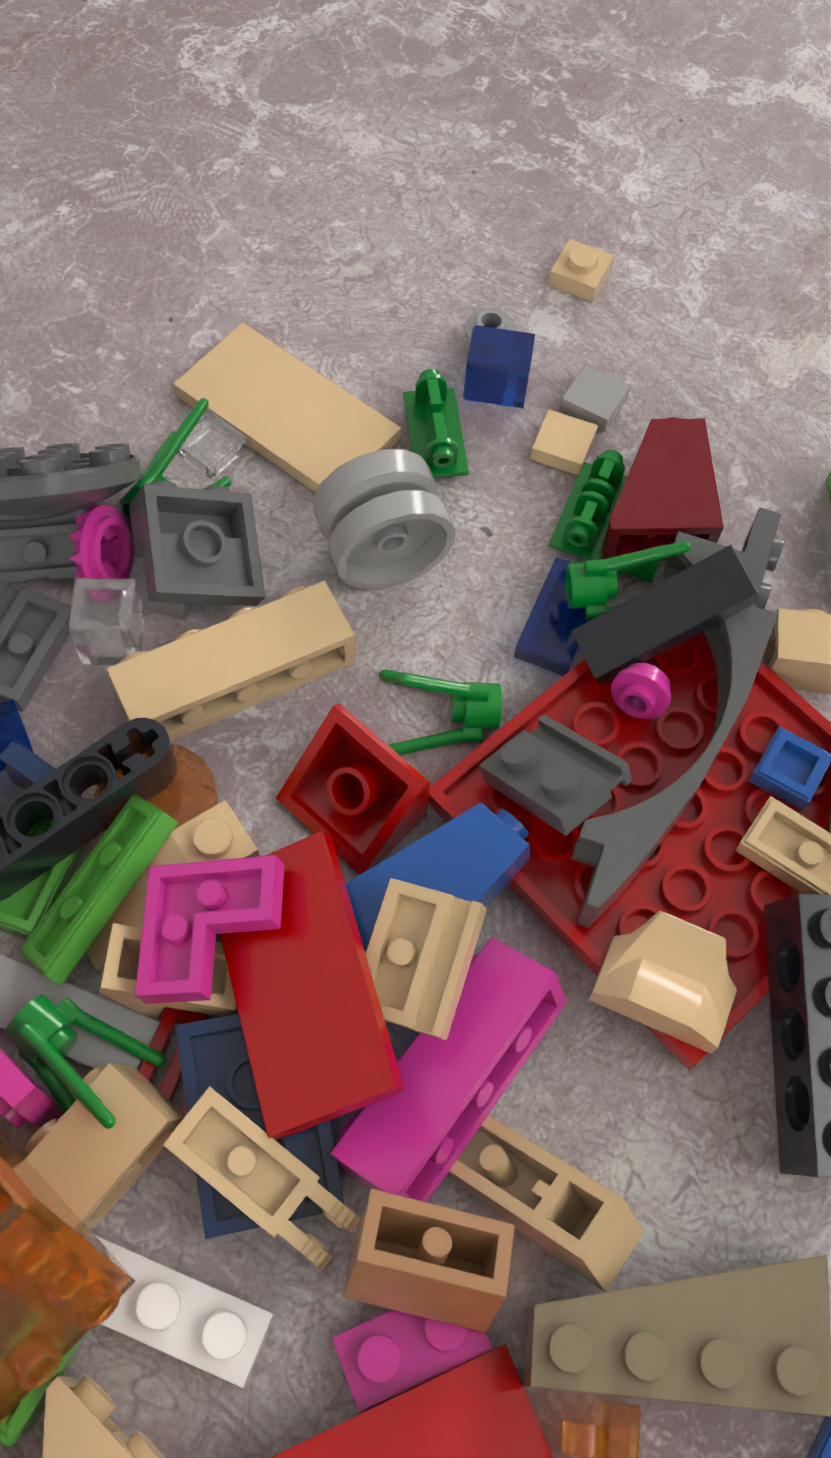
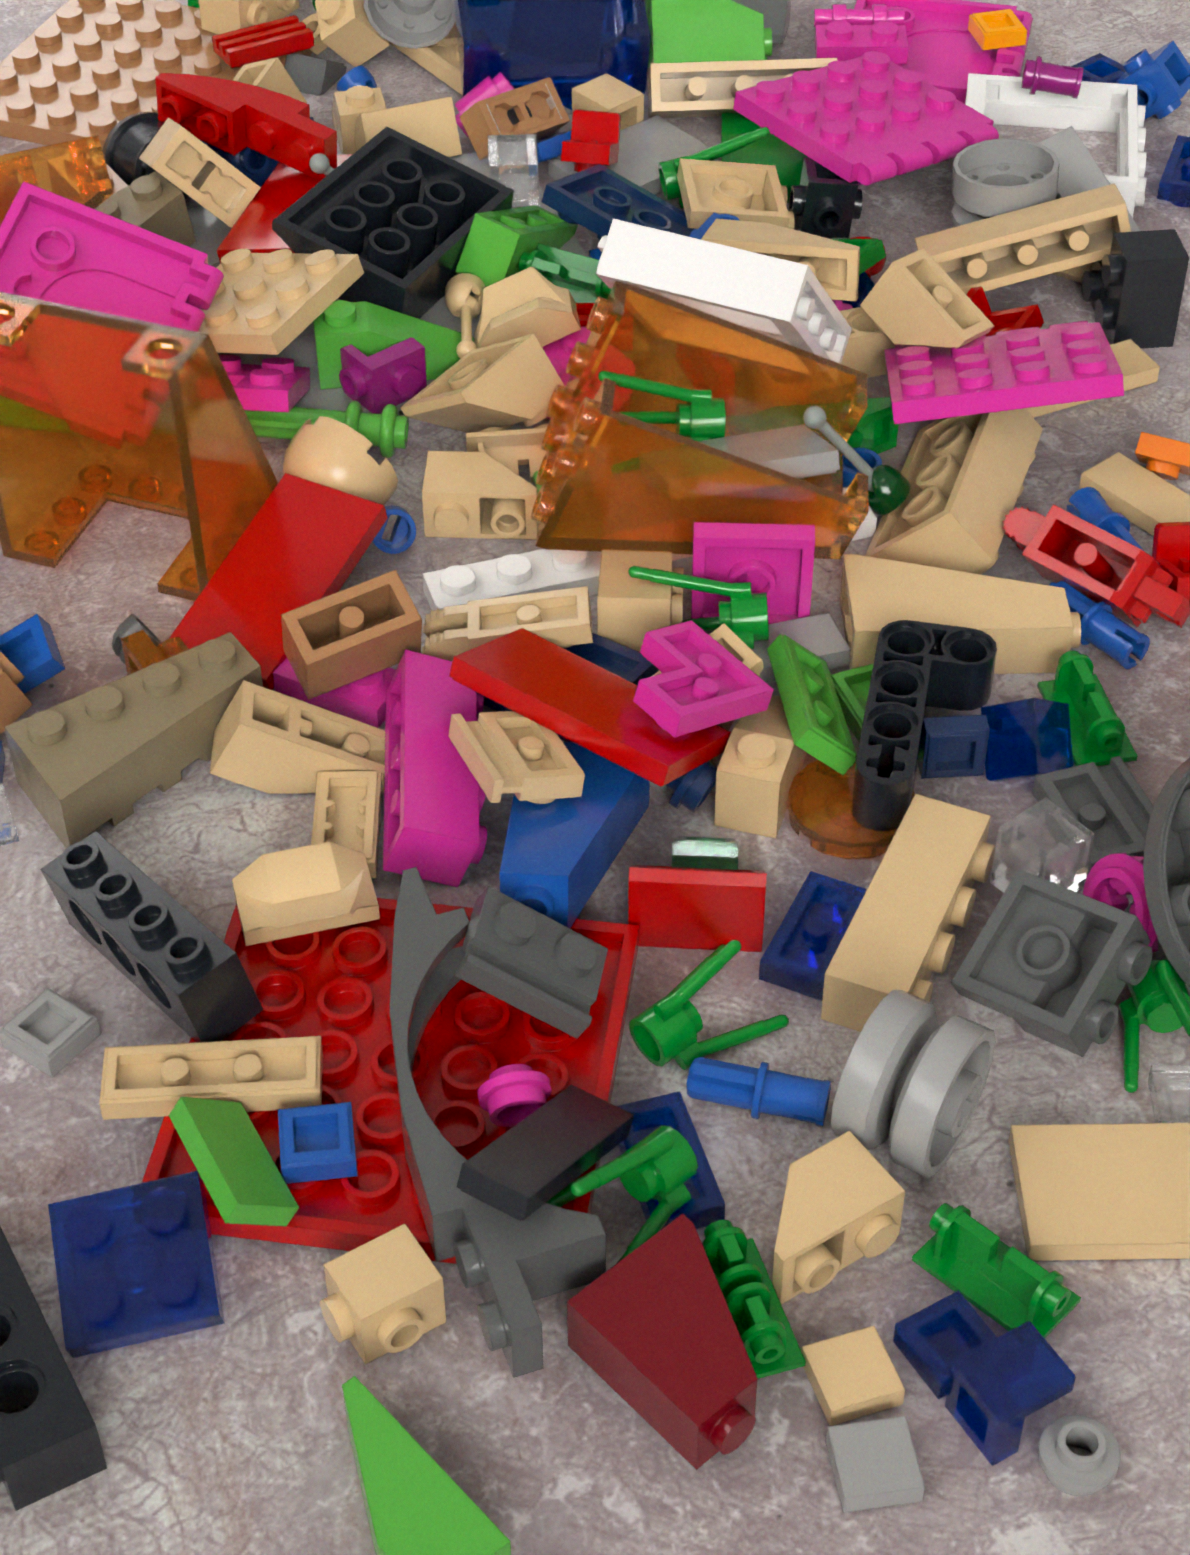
camera: 145 degrees right, 20 degrees down
(300, 702) = (810, 935): none -> clear blue plate
(312, 812) = (705, 852): none -> clear green tile
(455, 625) = (759, 1090): none -> blue axle
(502, 413) = (939, 1337): none -> clear blue plate
(502, 512) = (832, 1214): none -> tan slope
(559, 1082) = (349, 812): none -> tan plate

